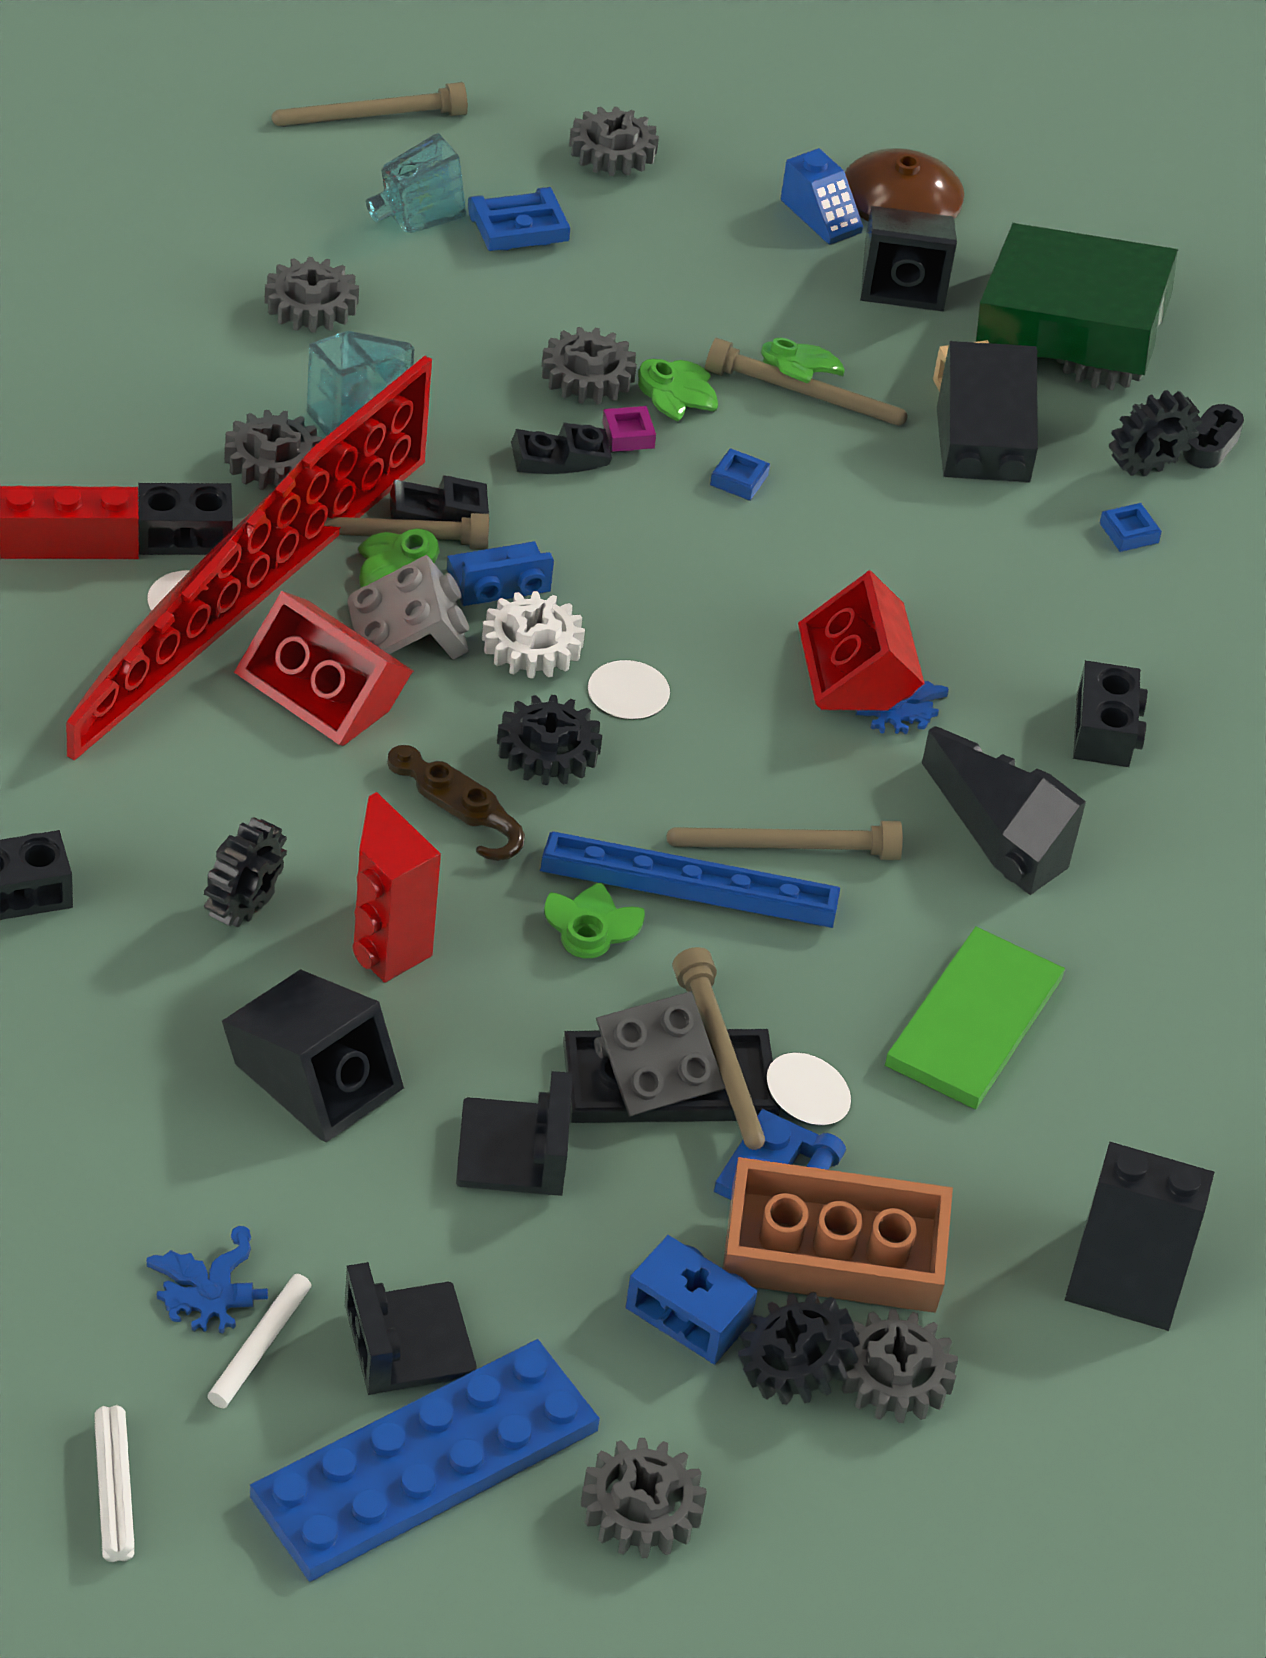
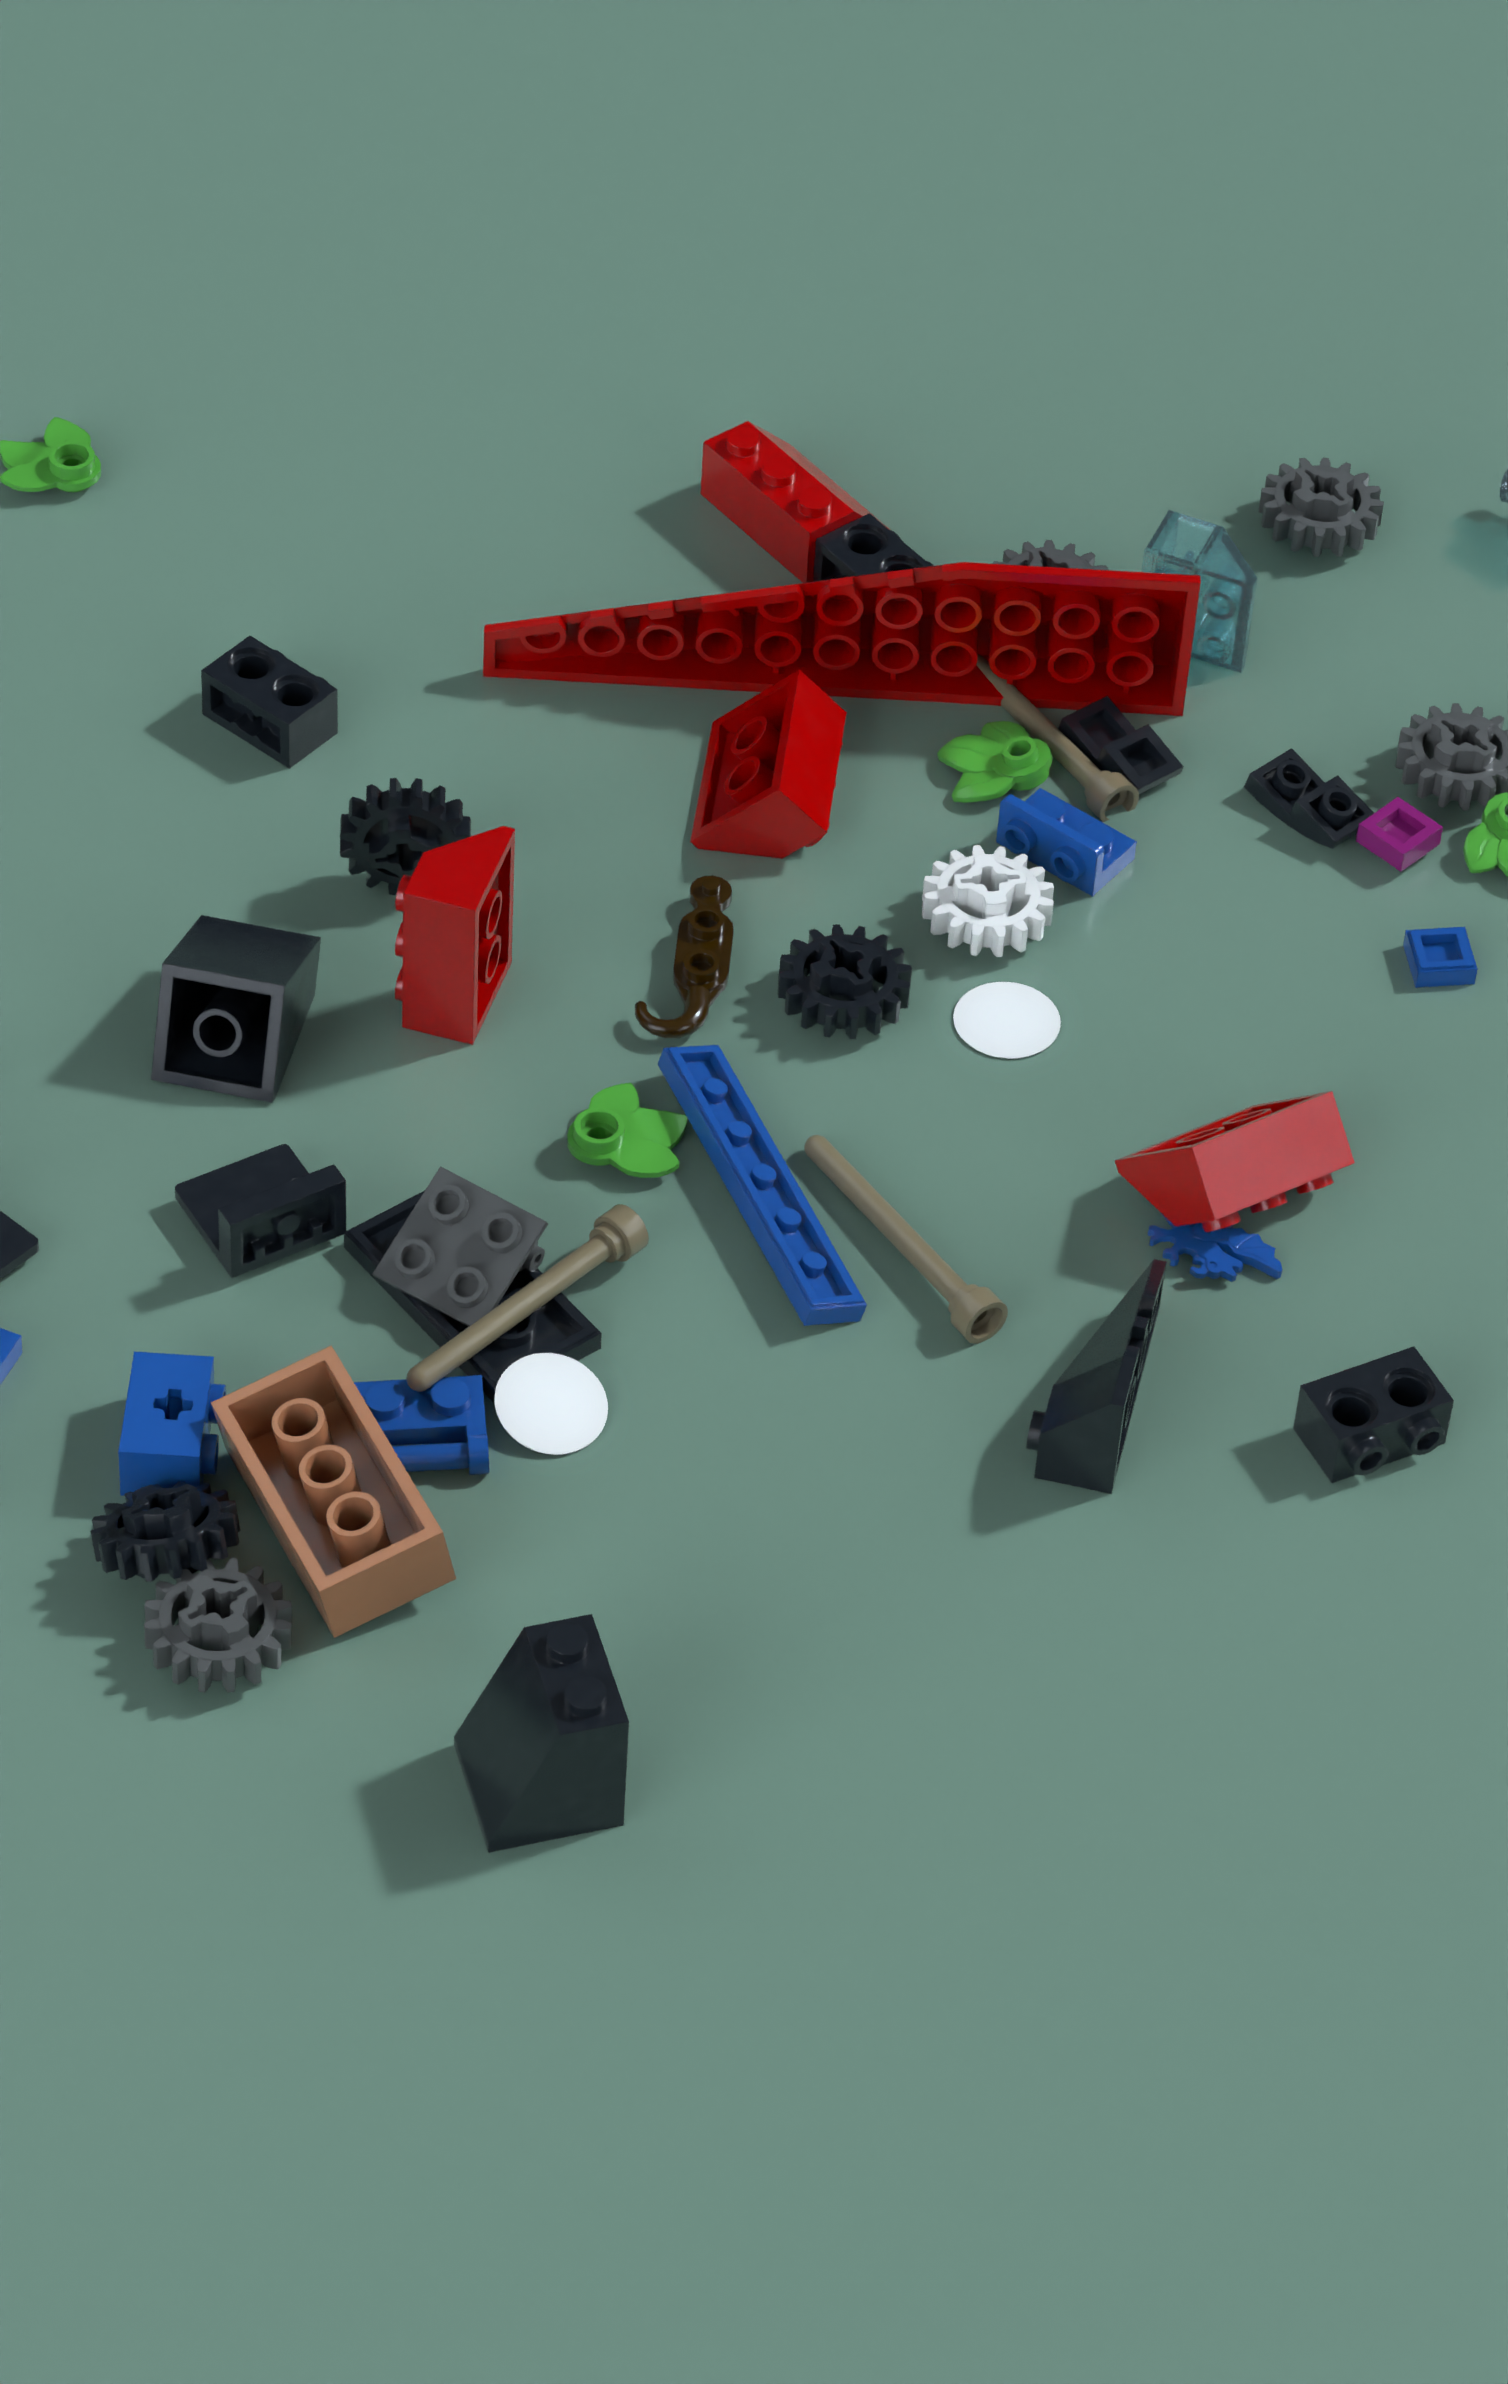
camera: 60 degrees right, 0 degrees up
(410, 606) = (931, 798): light grey bracket -> none
(974, 1017) = (789, 1498): bright green tile -> none

